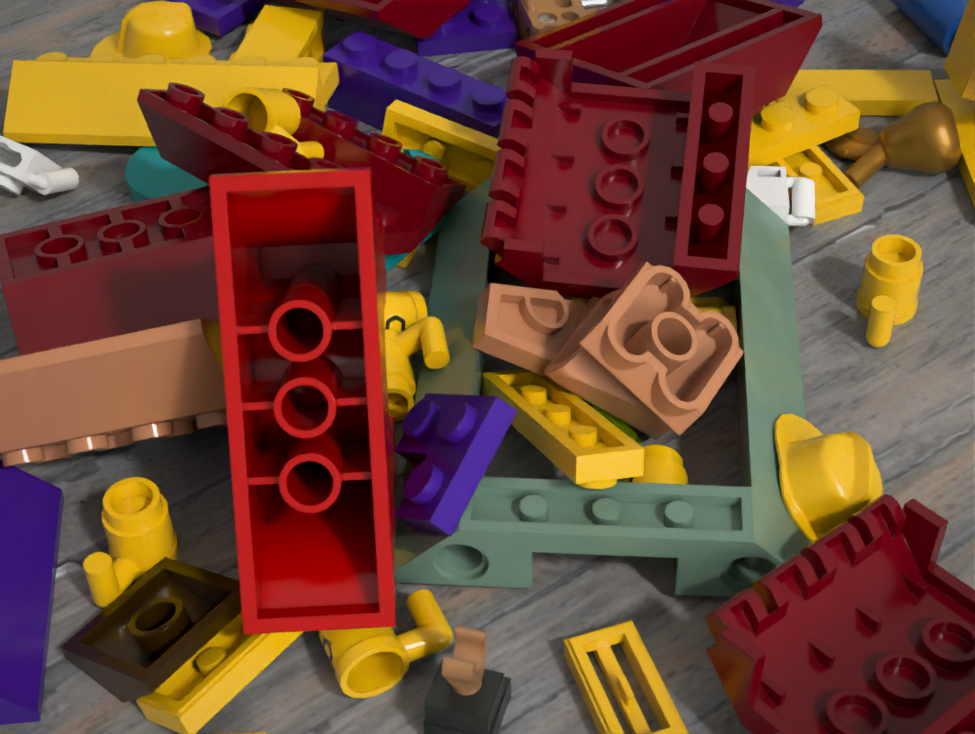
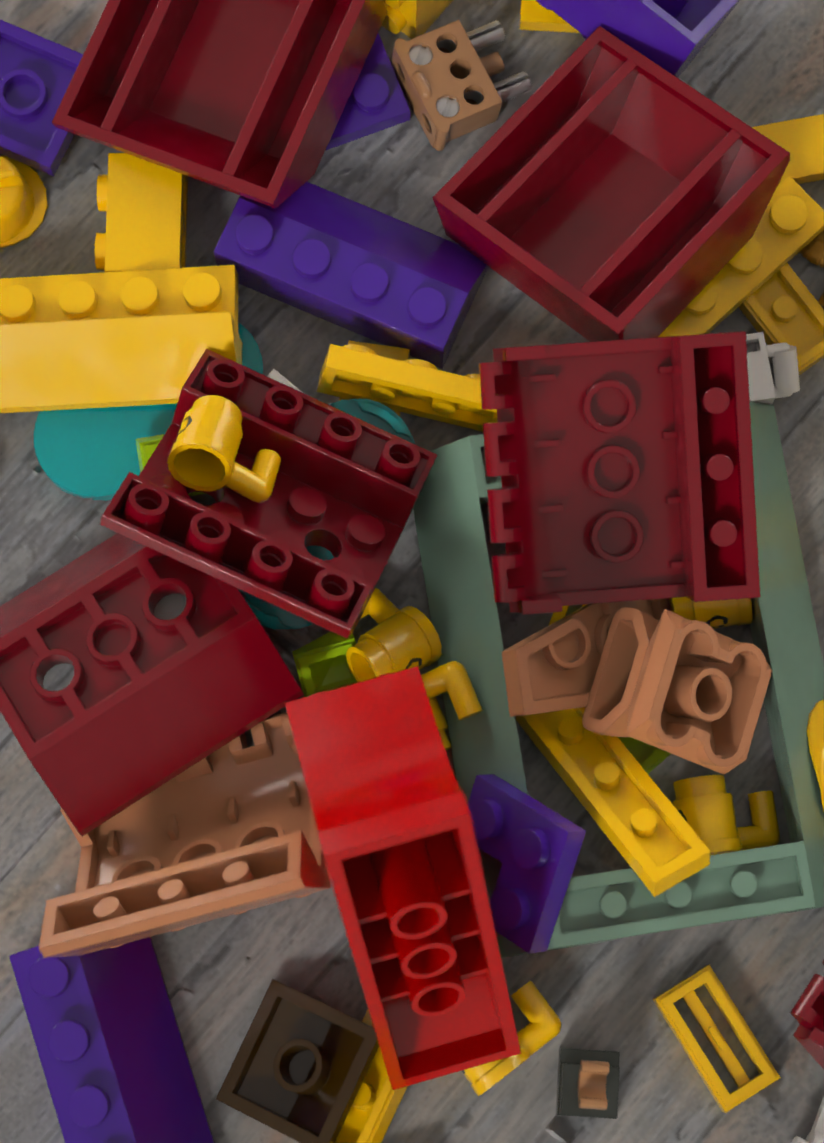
camera: 15 degrees left, 35 degrees up
(137, 536) = (243, 968): yellow piece -> none

